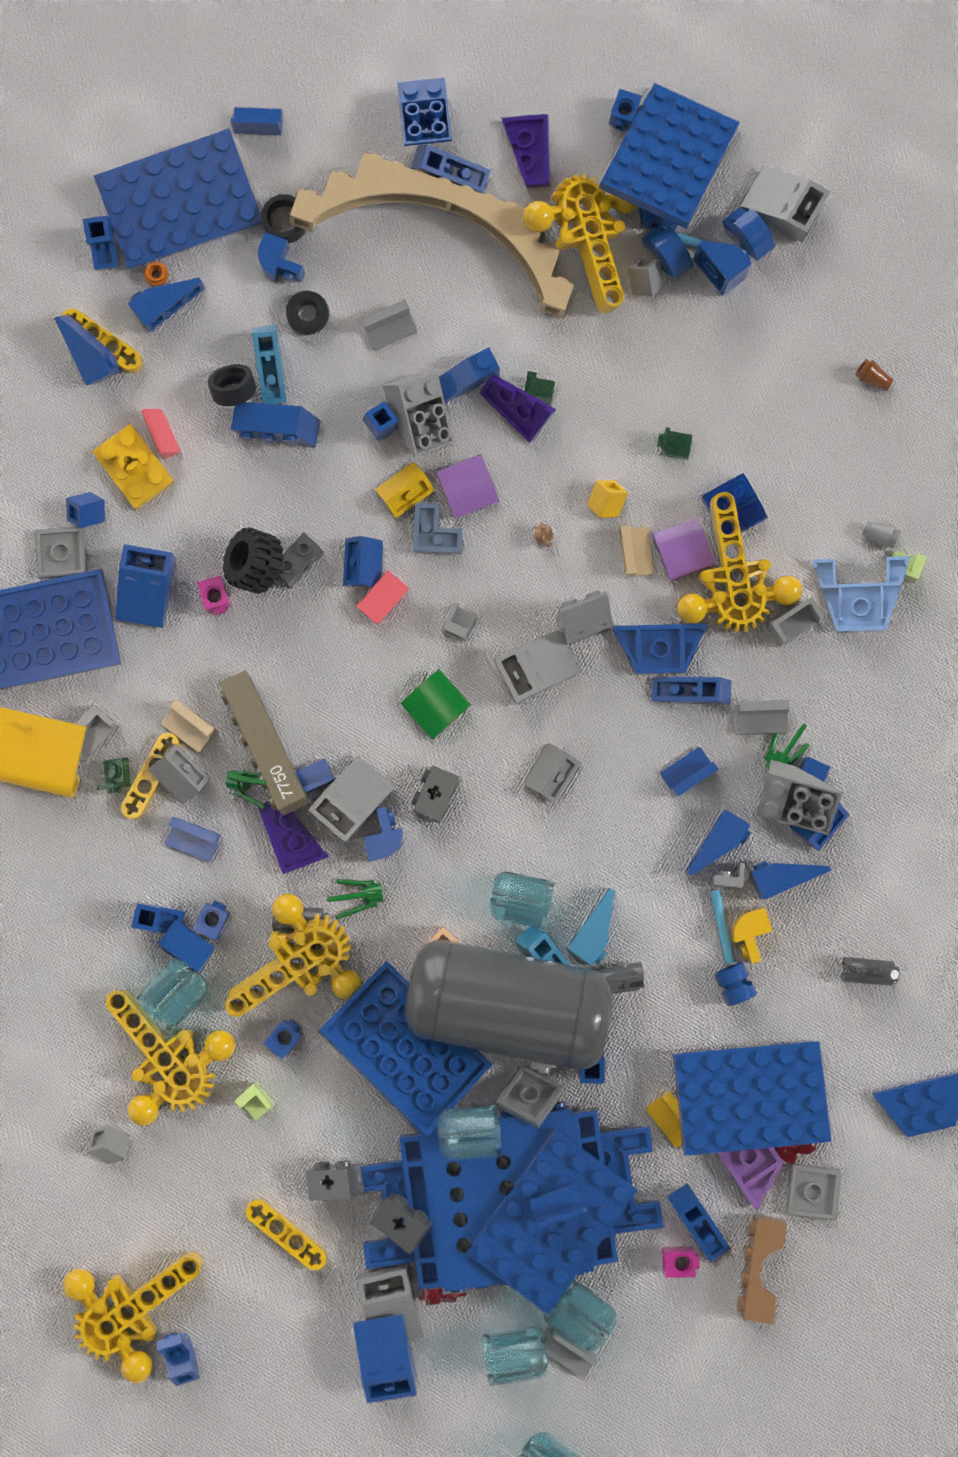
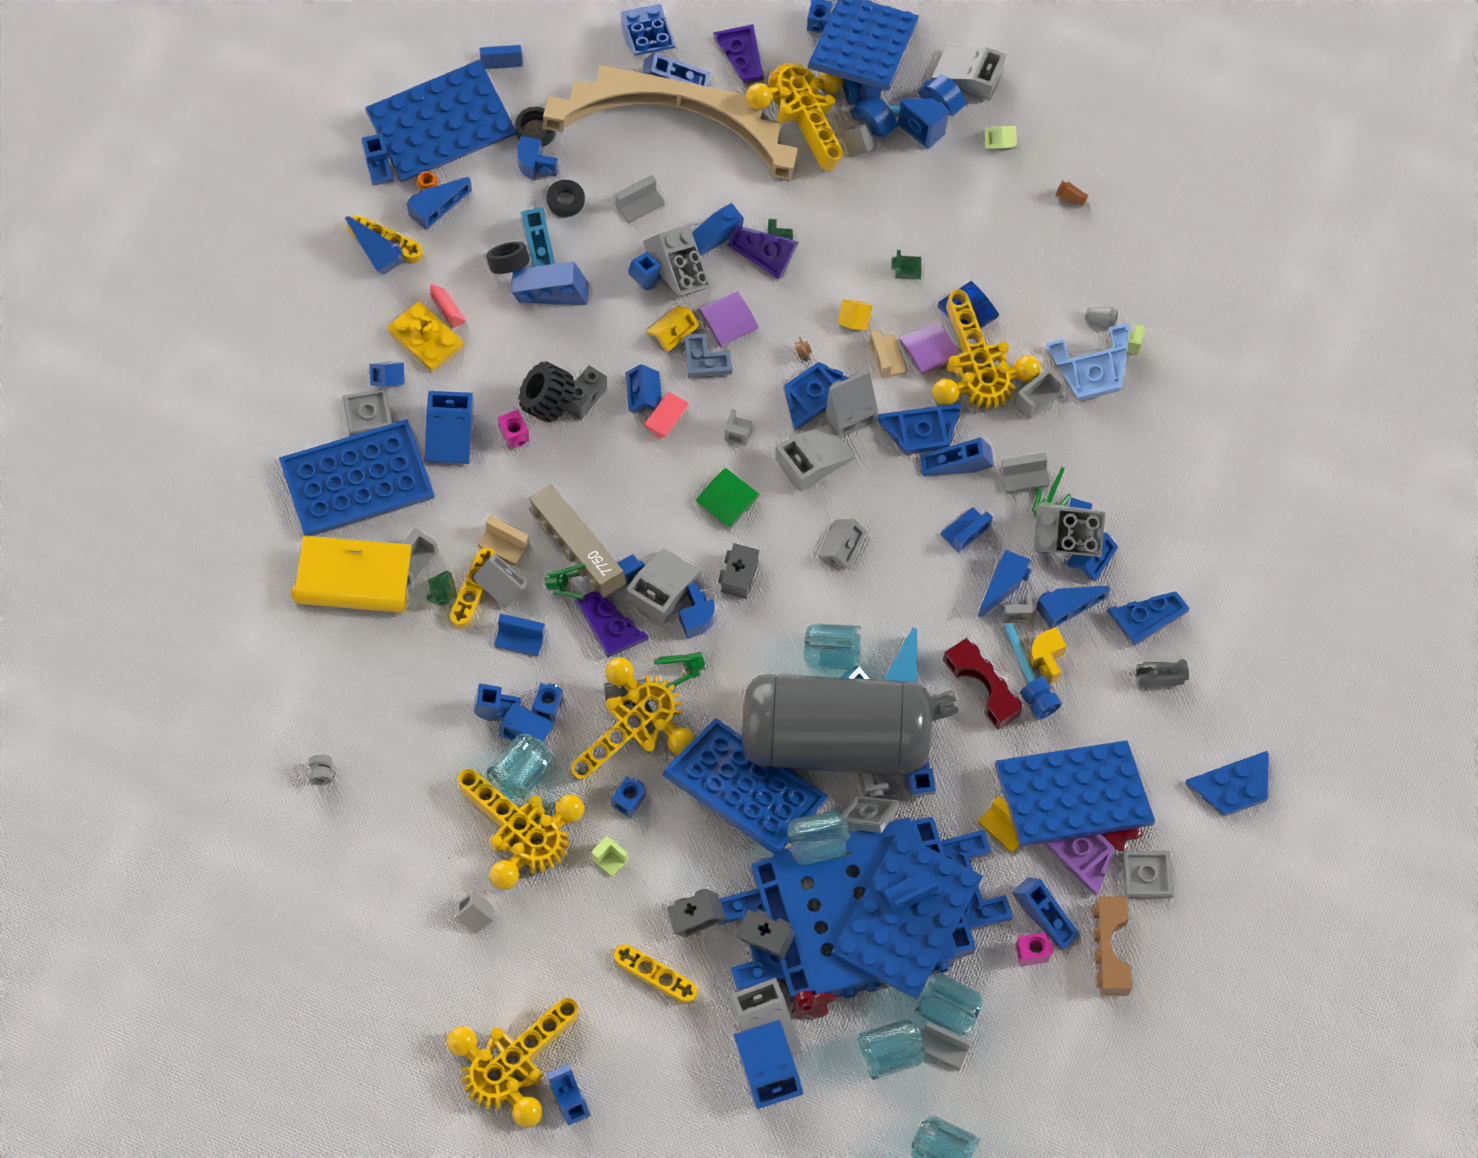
camera: 10 degrees left, 20 degrees down
(548, 587) = (809, 393): none -> blue wing
(691, 985) = (966, 661): none -> dark red arch
(806, 293) = (1000, 137): none -> yellowish green panel
(867, 901) = (1149, 616): none -> blue wing

